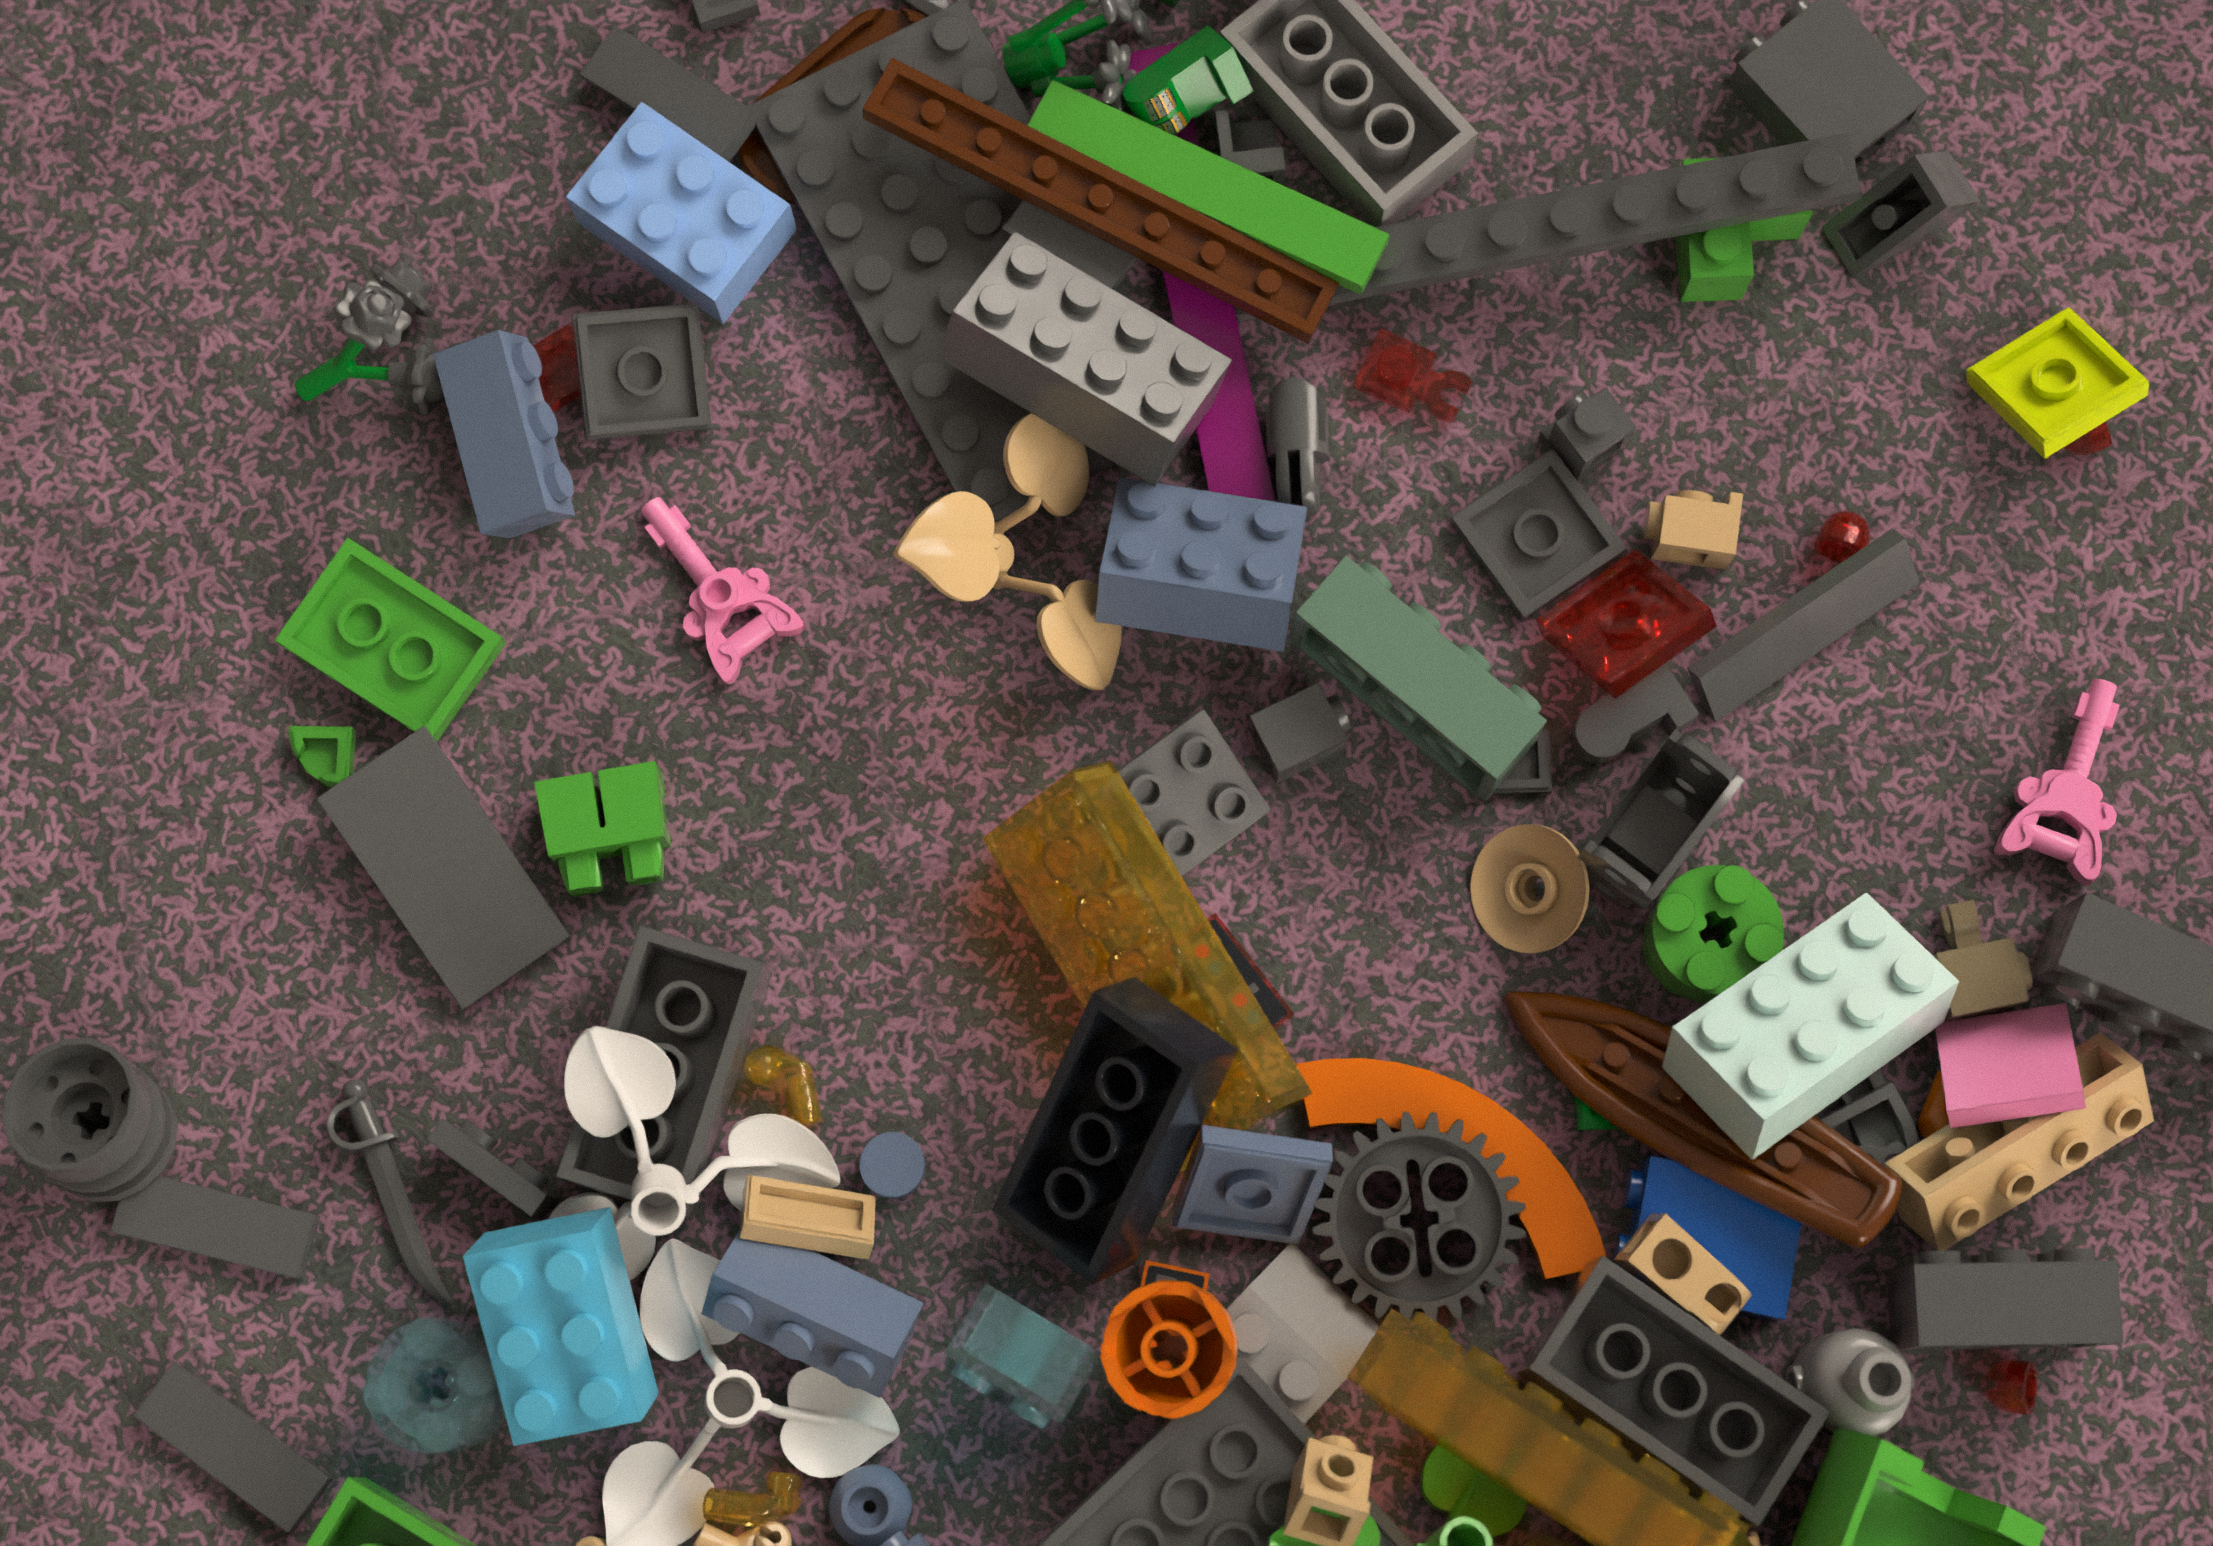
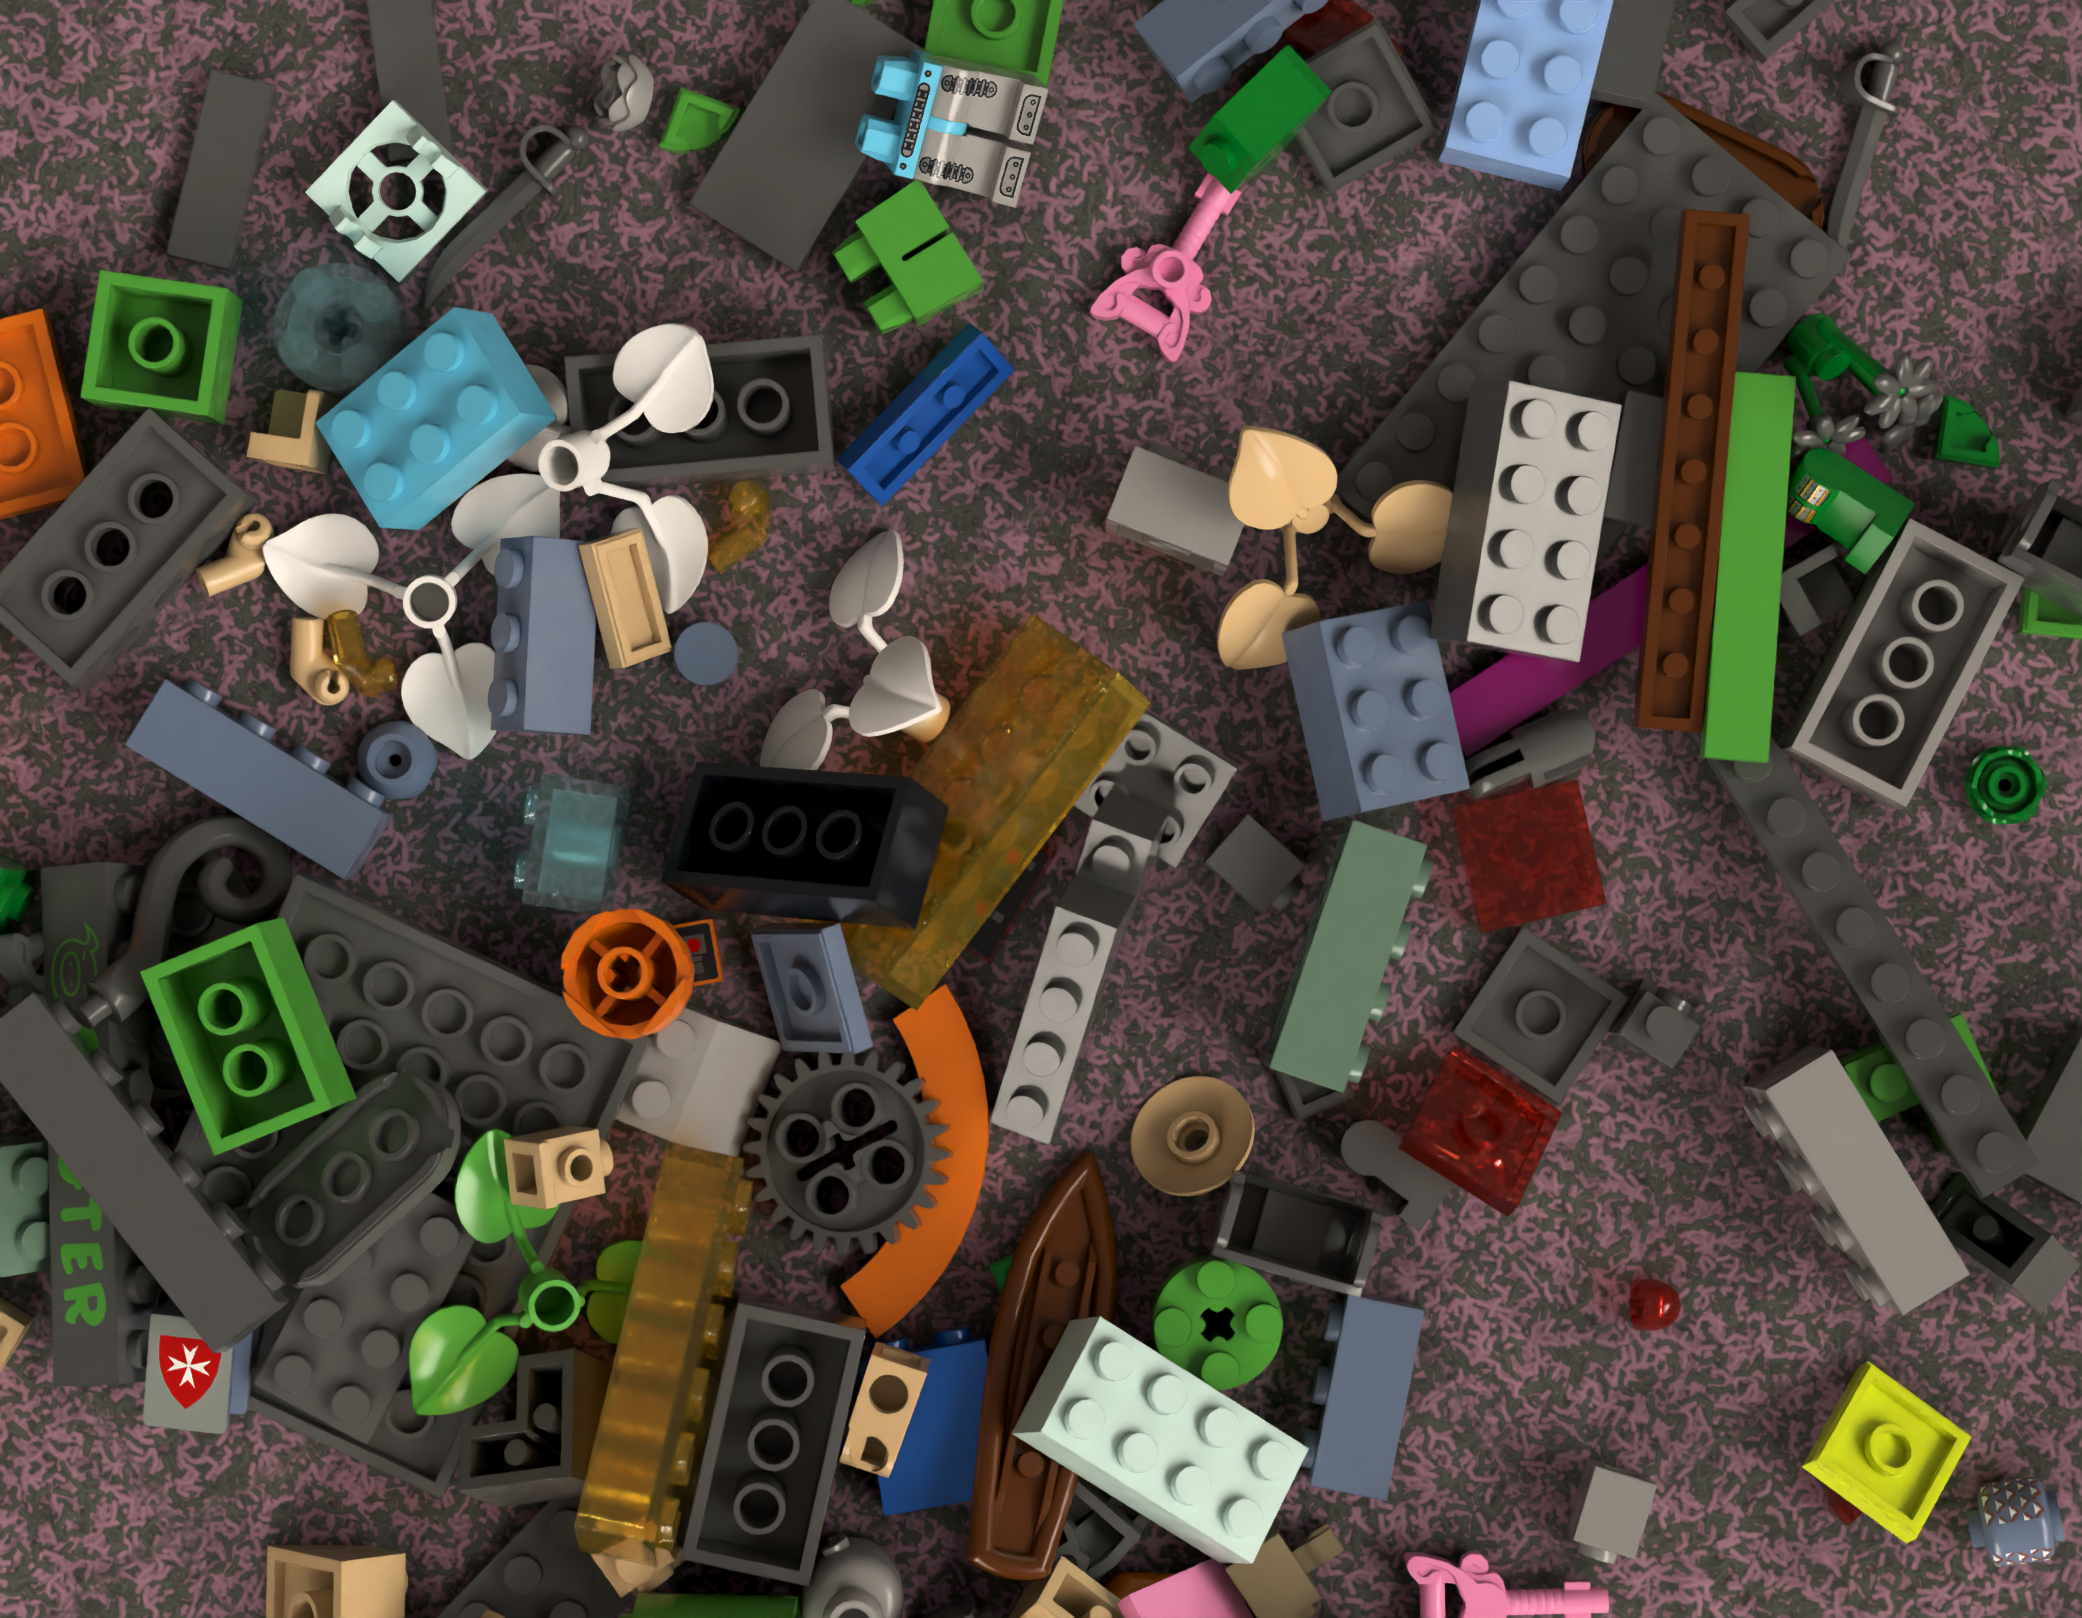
camera: 65 degrees right, 10 degrees up
(265, 1262) = (333, 196): none -> light aqua piece
(333, 1027) = (625, 93): none -> light grey plate
(391, 972) = (697, 123): none -> bright green tile
(472, 1149) = (563, 268): dark grey plate -> none
(483, 746) = (931, 120): none -> hips
(514, 1475) = (293, 434): none -> tan panel
(617, 453) = (1260, 120): none -> green slope
(755, 868) = (925, 414): none -> blue plate
(942, 666) = (1176, 508): none -> light grey brick
(1011, 982) = (900, 682): none -> white plant
(1331, 929) = (1077, 964): none -> arch
(1388, 487) = (1528, 856): none -> clear red plate
(1402, 372) = (1647, 823): clear red plate -> none
(1492, 36) = (2025, 782): none -> green plate
(1694, 528) = (1602, 1159): tan brick -> none
(1798, 311) = (1854, 1179): none -> light grey brick
(1803, 625) = (1550, 1298): dark grey tile -> none
(1830, 827) = (1362, 1394): none -> sand blue brick
(2023, 647) = (1610, 1511): none -> light grey brick
(2161, 294) = (2016, 1521): none -> sand blue head

